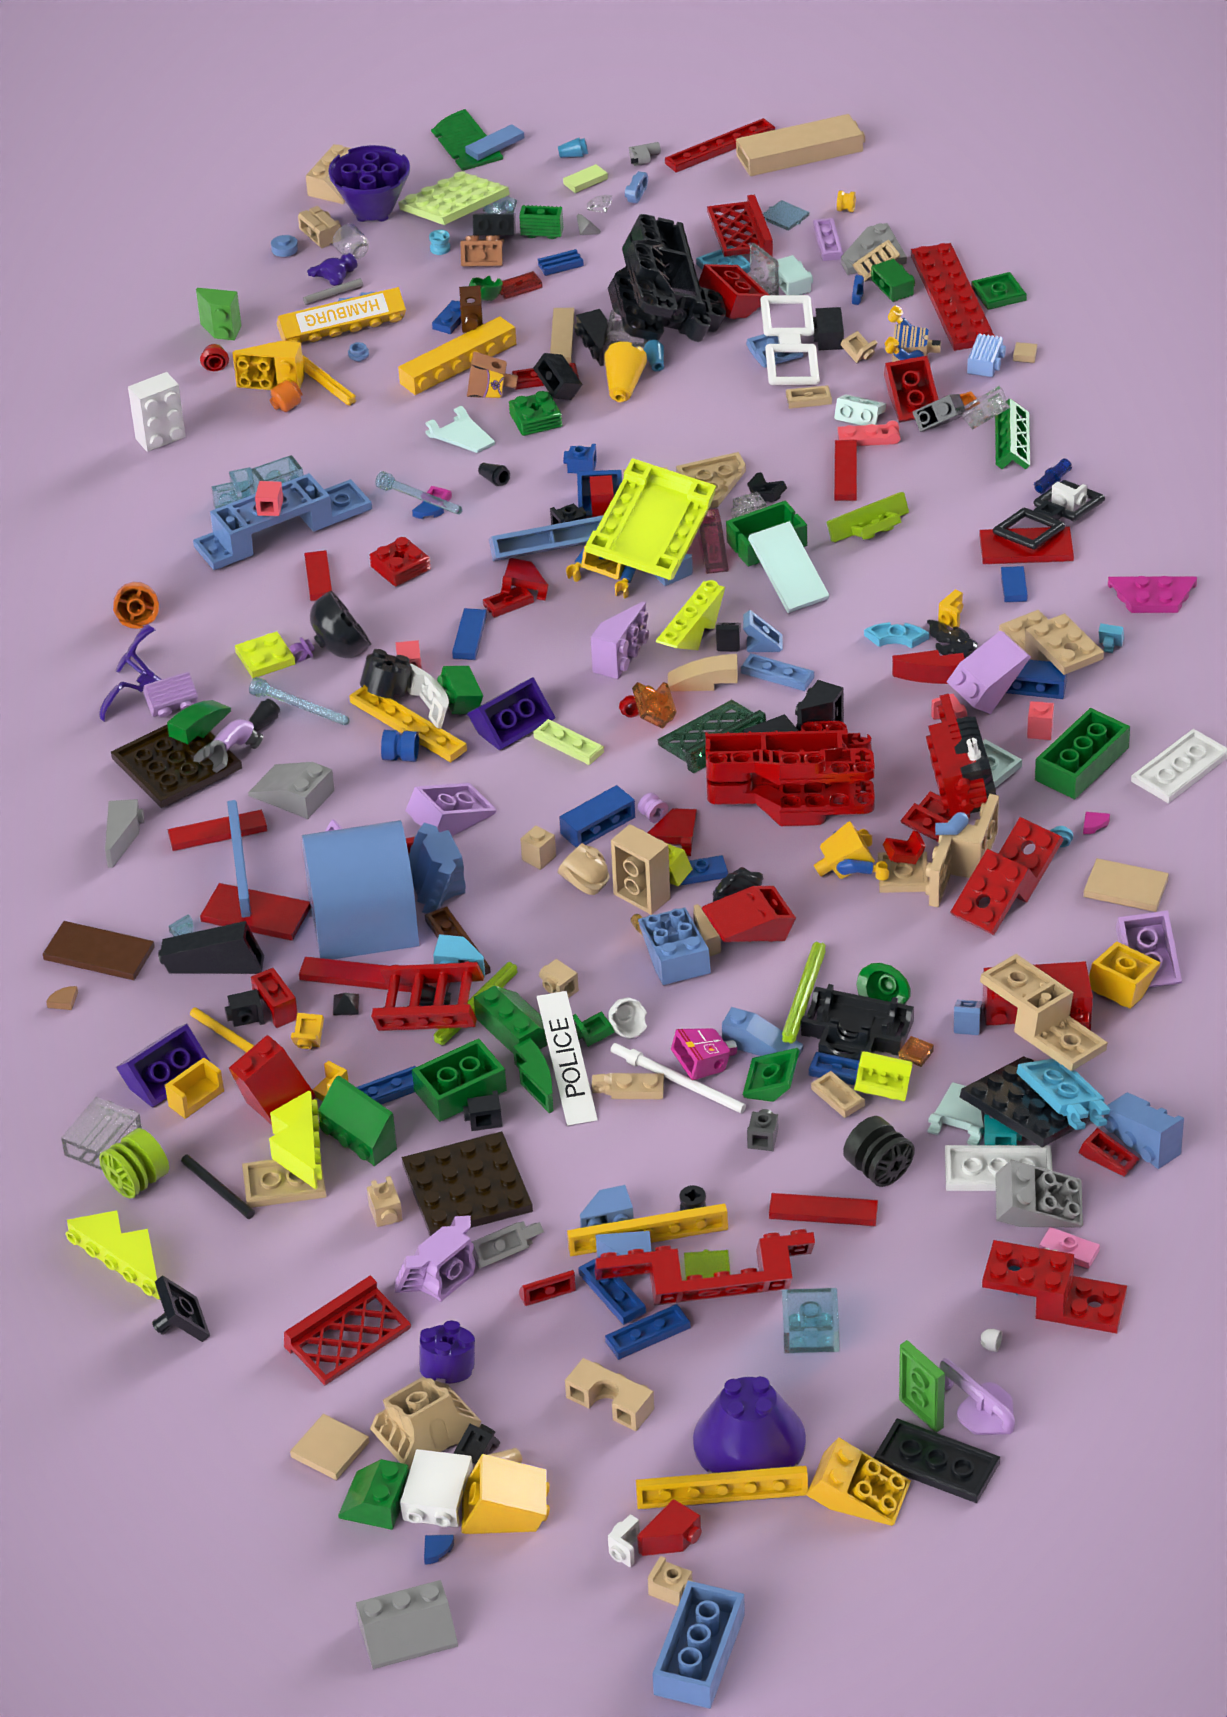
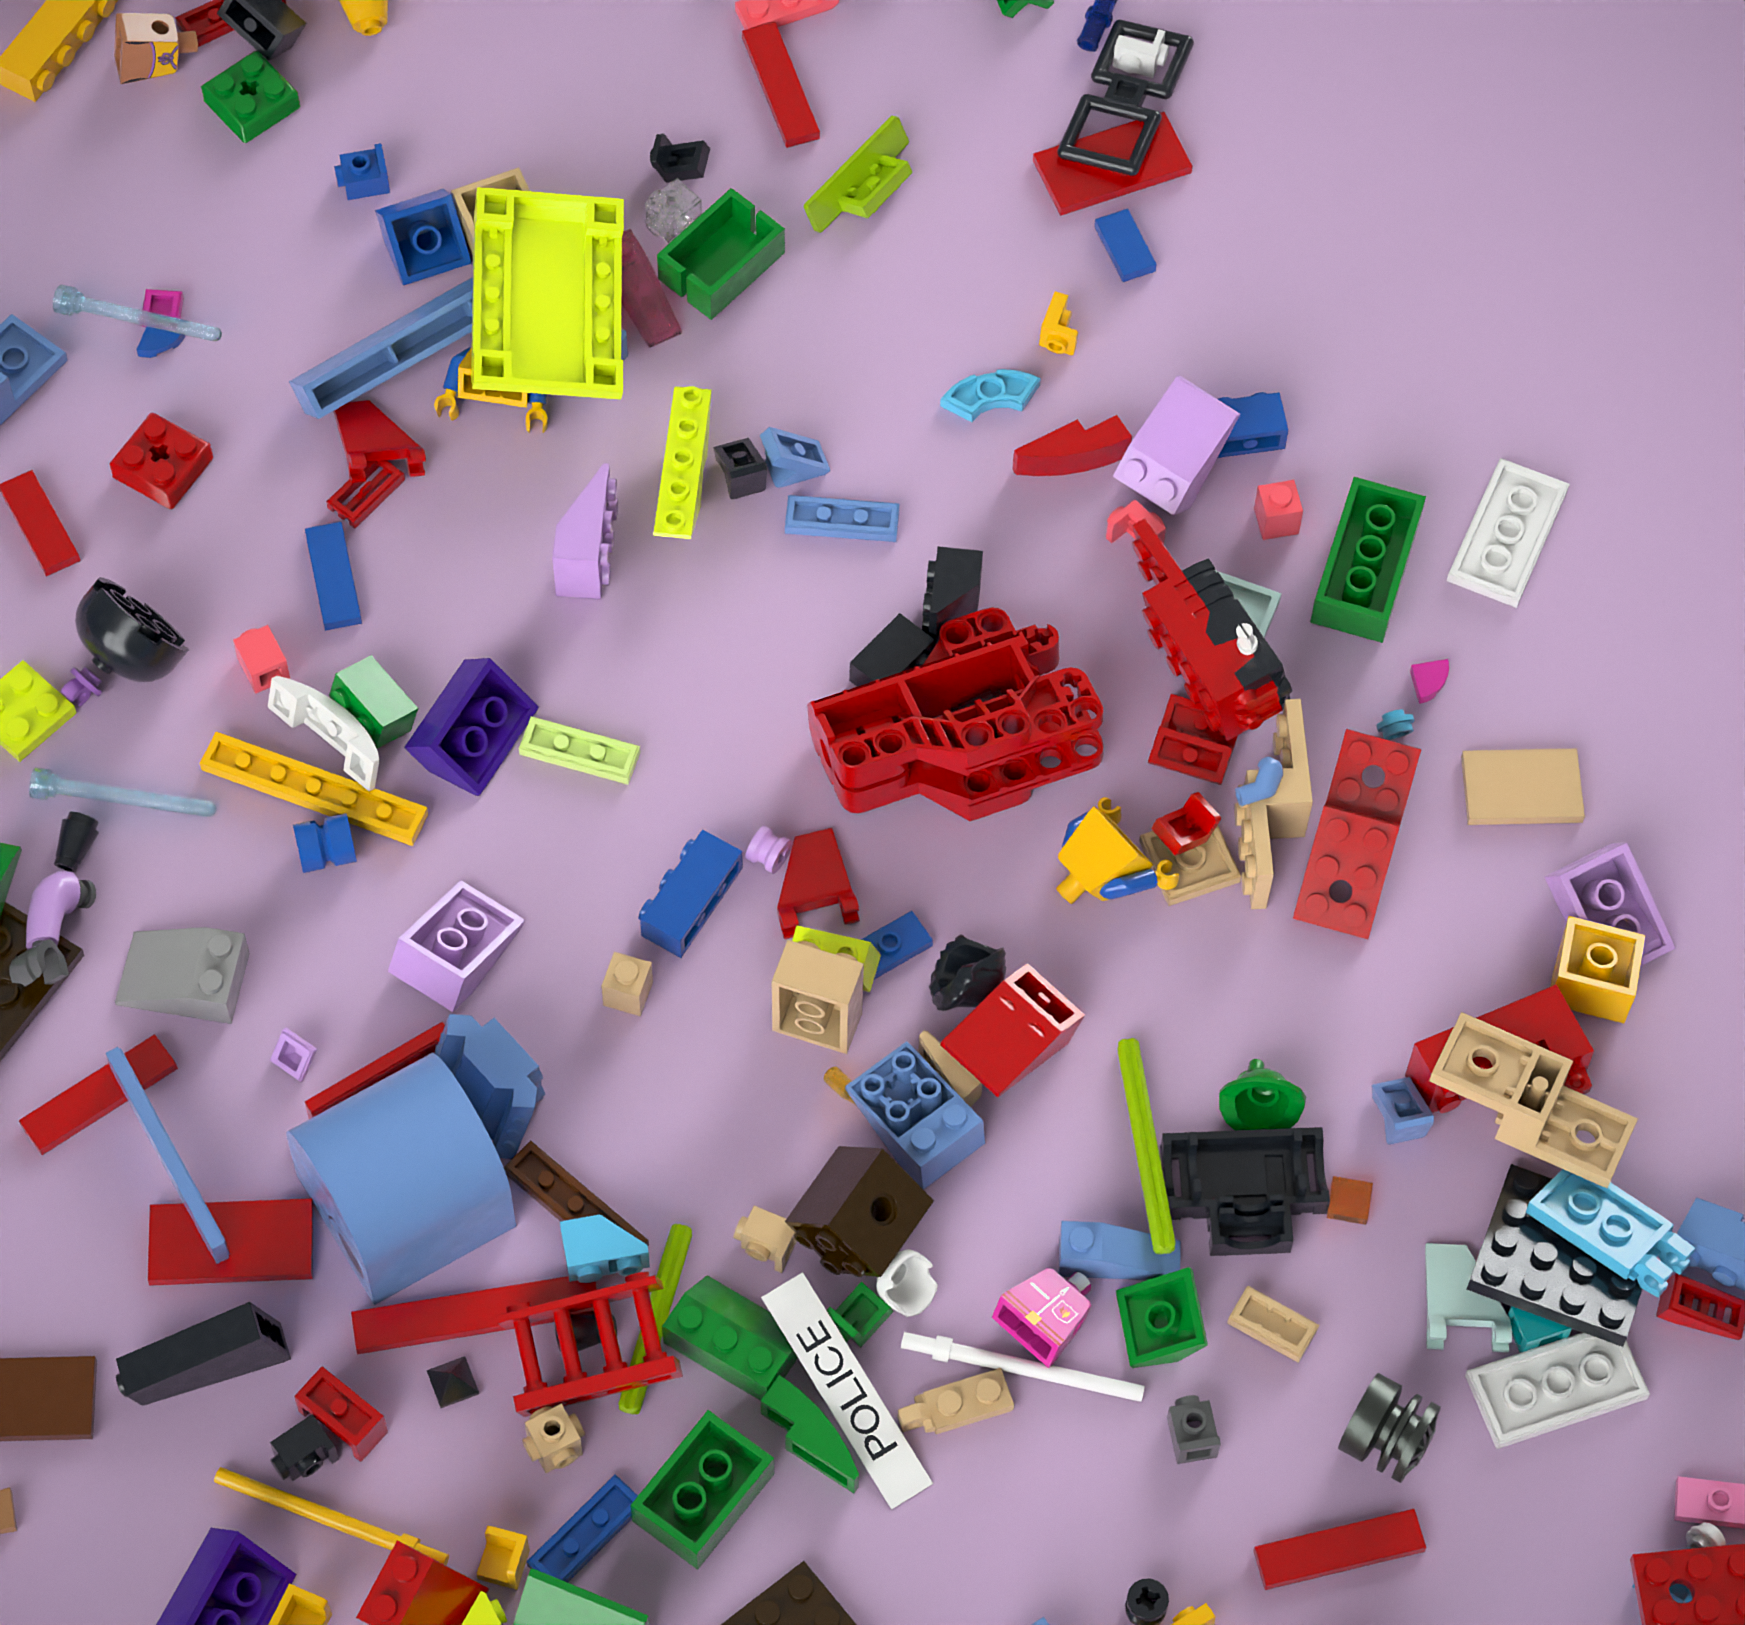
camera: 25 degrees left, 20 degrees up
(182, 926) = (129, 1313): clear light blue tile -> none
(308, 1030) = (420, 1462): yellow bracket -> none
(386, 674) = (245, 710): black brick -> none
(387, 1038) = (555, 1450): none -> tan brick
(461, 432) = (147, 165): light aqua flag -> none
(483, 1112) = (761, 1534): black brick -> none
(495, 473) = (238, 238): black cone -> none
(567, 514) = (393, 299): black brick -> none
(585, 869) = (723, 1012): tan helmet -> none
(601, 494) = (435, 248): red slope -> none
(613, 971) = (858, 1211): none -> dark brown brick
(629, 711) = (648, 654): red plate -> none
(654, 705) = (687, 641): clear orange bracket -> none
(696, 751) = (825, 681): clear green fence -> none
(704, 673) = (736, 559): tan slope -> none
(720, 471) = (582, 153): tan plate -> none
(788, 567) = (784, 314): light aqua tile -> none
(835, 1065) = (1244, 1256): blue tile -> none
(883, 1076) = (1330, 1275): neon yellow bracket -> none
(957, 638) = (1095, 386): black piece -> none
(1037, 1197) = (1643, 1432): light grey slope -> none
(1053, 641) = (1235, 353): tan bracket -> none
(1110, 636) = (1313, 314): medium azure tile -> none
(1153, 593) = (1334, 207): dark pink wing -> none

